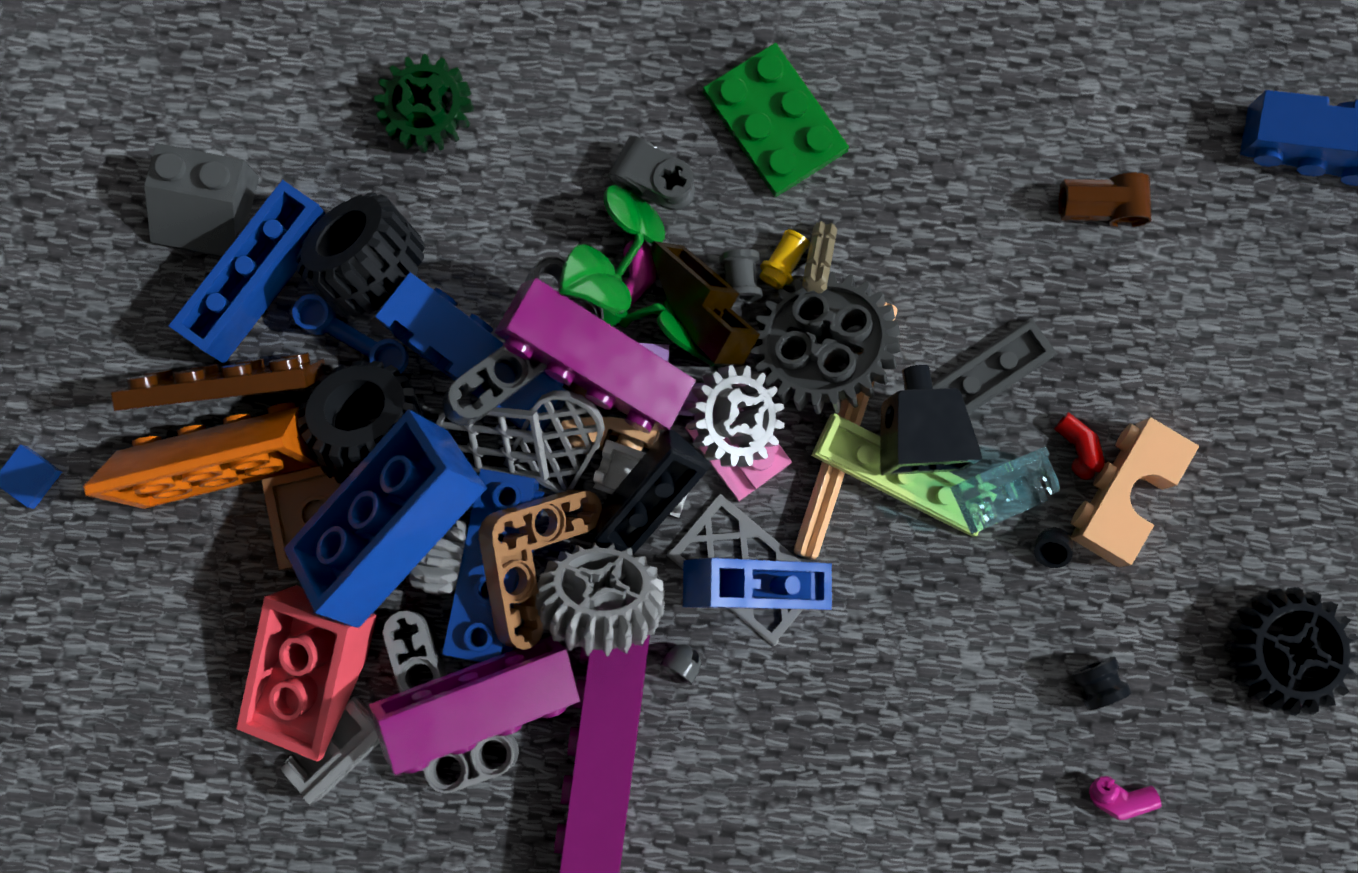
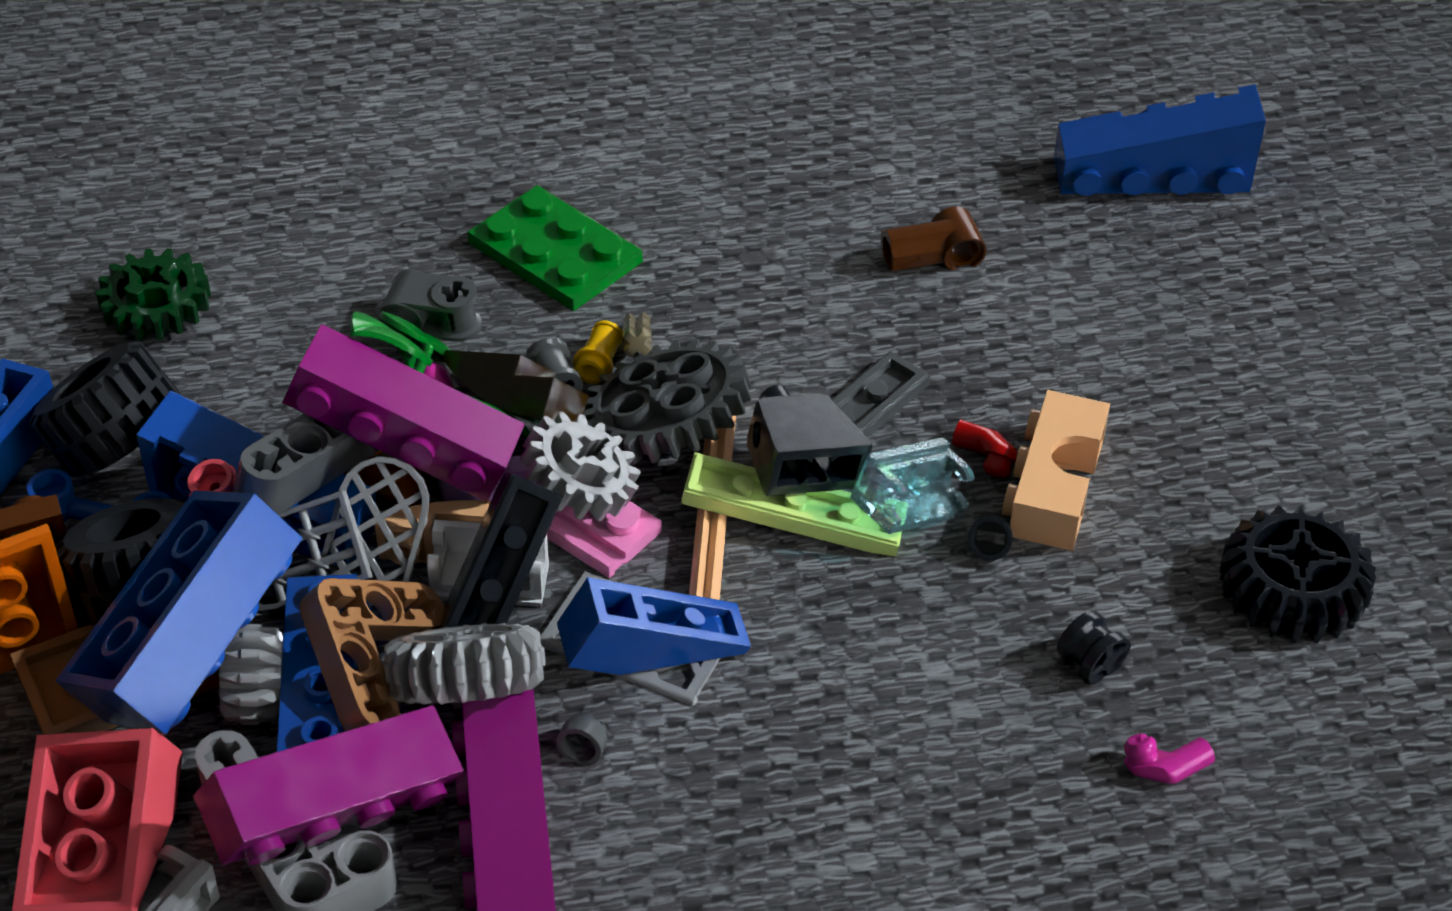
camera: 15 degrees left, 35 degrees down
(422, 375) = (212, 475): none -> coral plate

